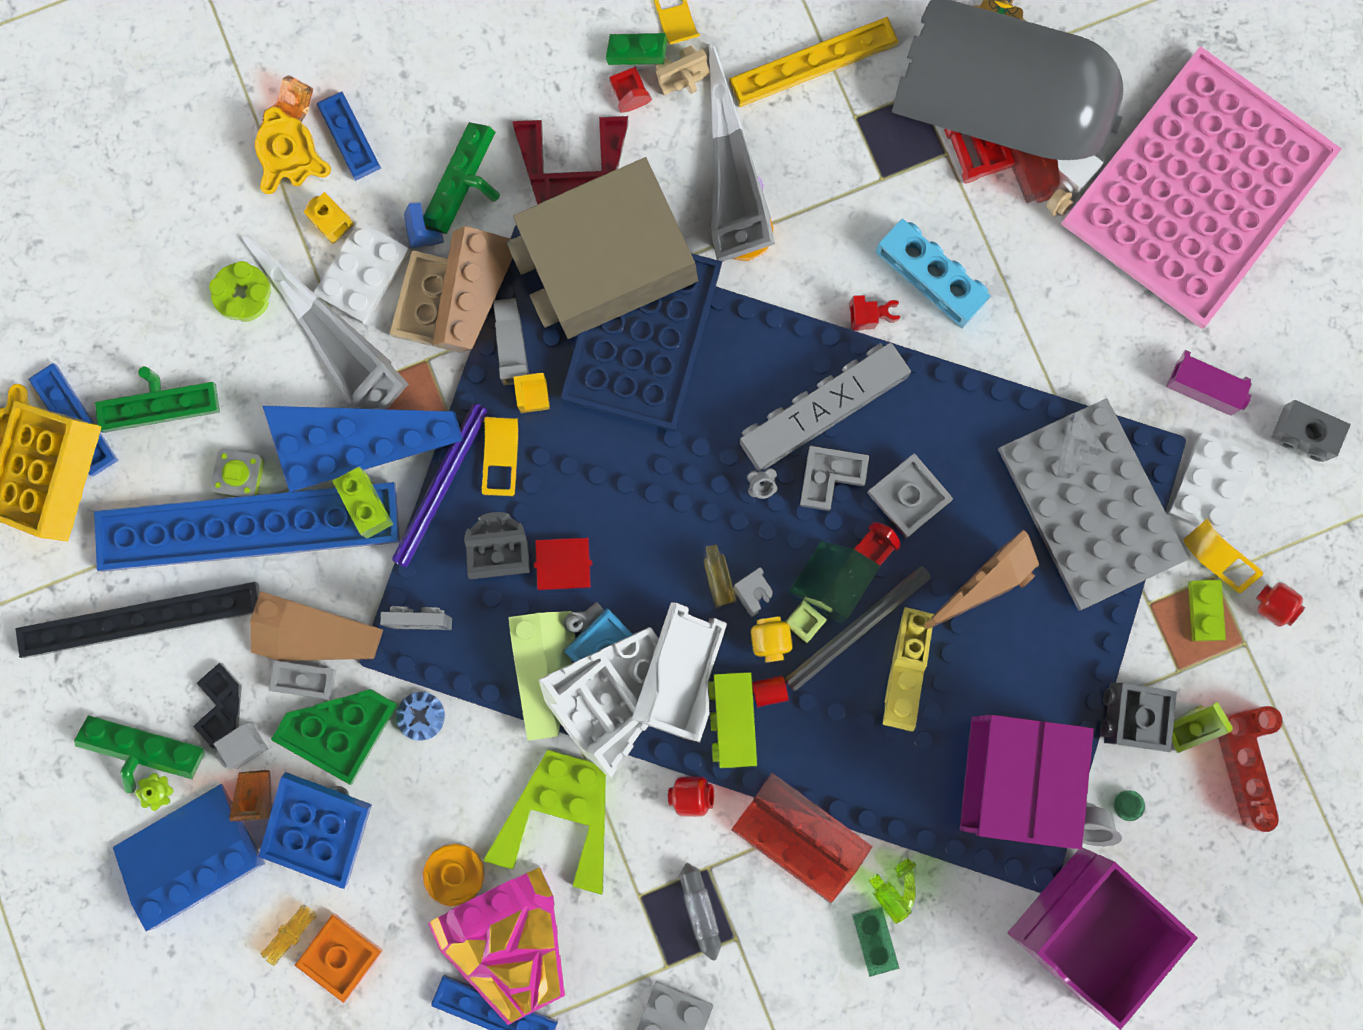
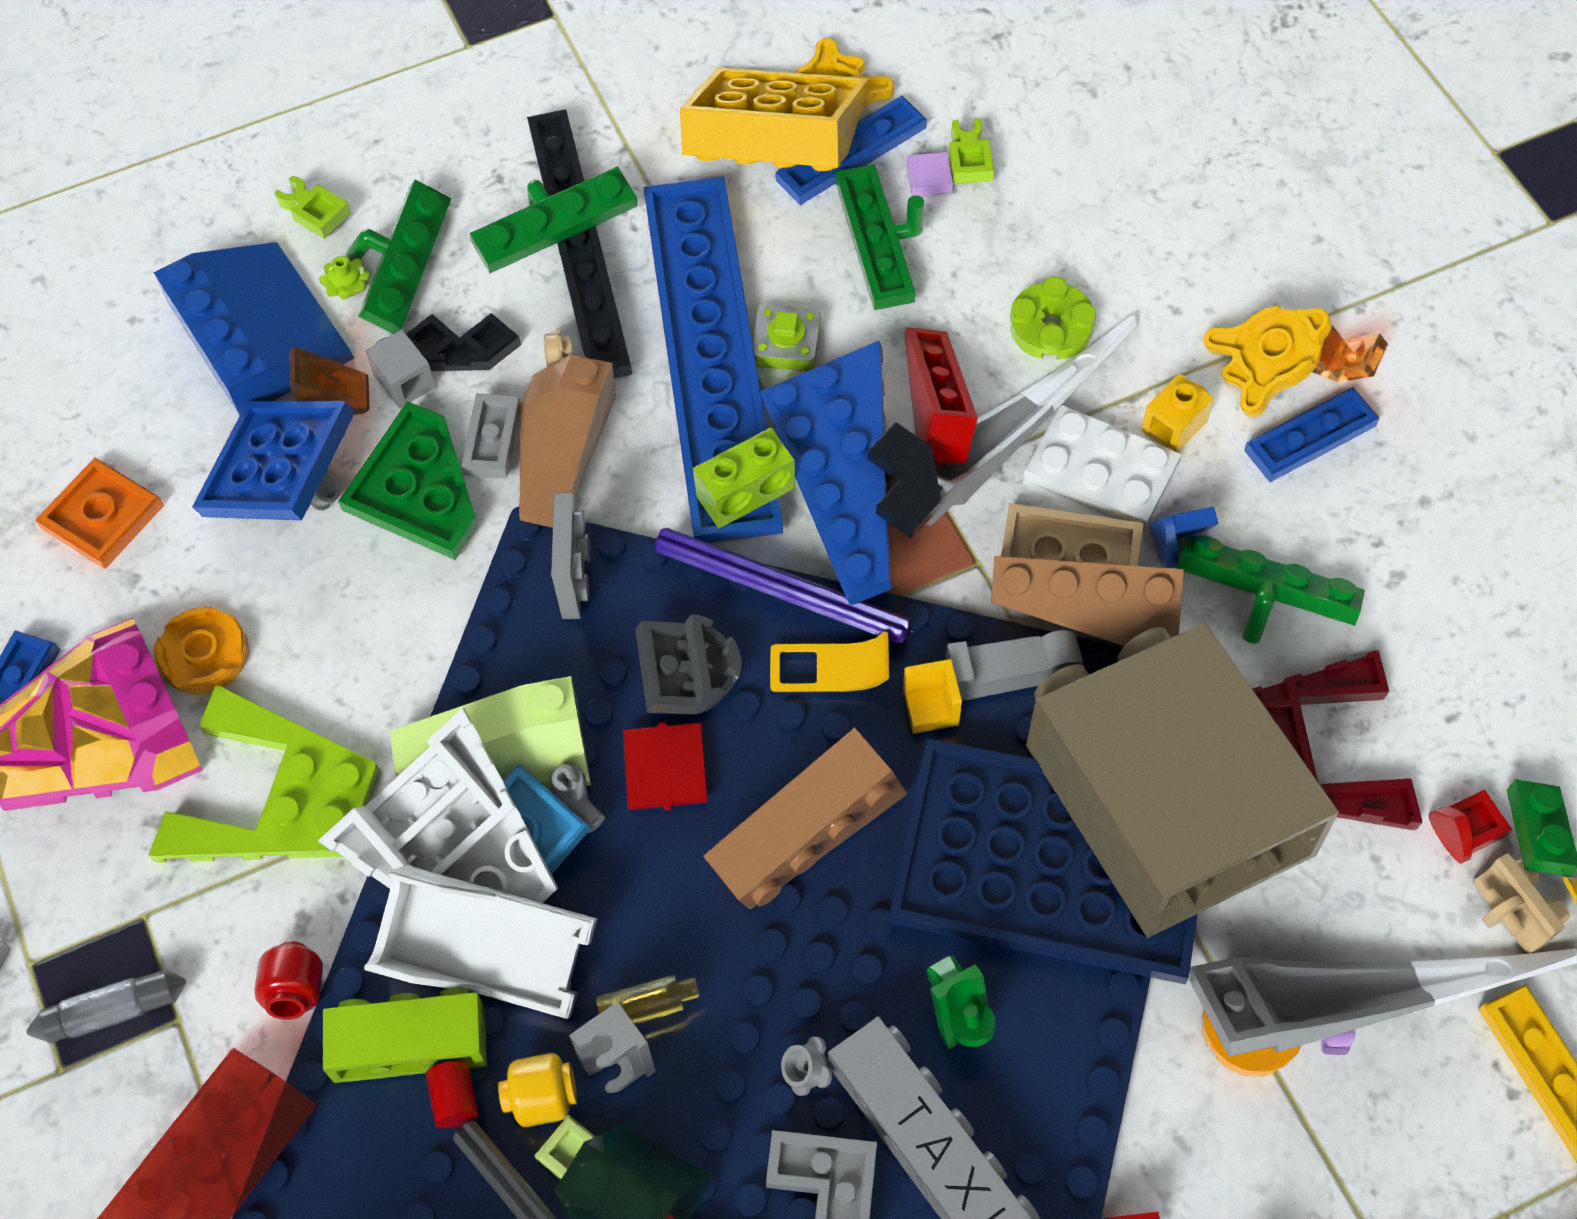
camera: 90 degrees right, 20 degrees down
(87, 818) = (314, 209): none -> lime plate
(93, 334) = (969, 155): none -> lime plate
(103, 365) = (929, 174): none -> lavender tile
(122, 636) = (552, 218): none -> green plate
(234, 635) = (556, 347): none -> tan plate
(288, 934) = (137, 448): clear yellow pin -> none
(308, 370) = (939, 395): none -> red slope
(368, 389) = (917, 493): none -> black tile
(435, 716) = (436, 606): medium blue gear -> none
(614, 474) = (805, 820): none -> medium nougat wedge
(736, 390) = (960, 1004): none -> green hips

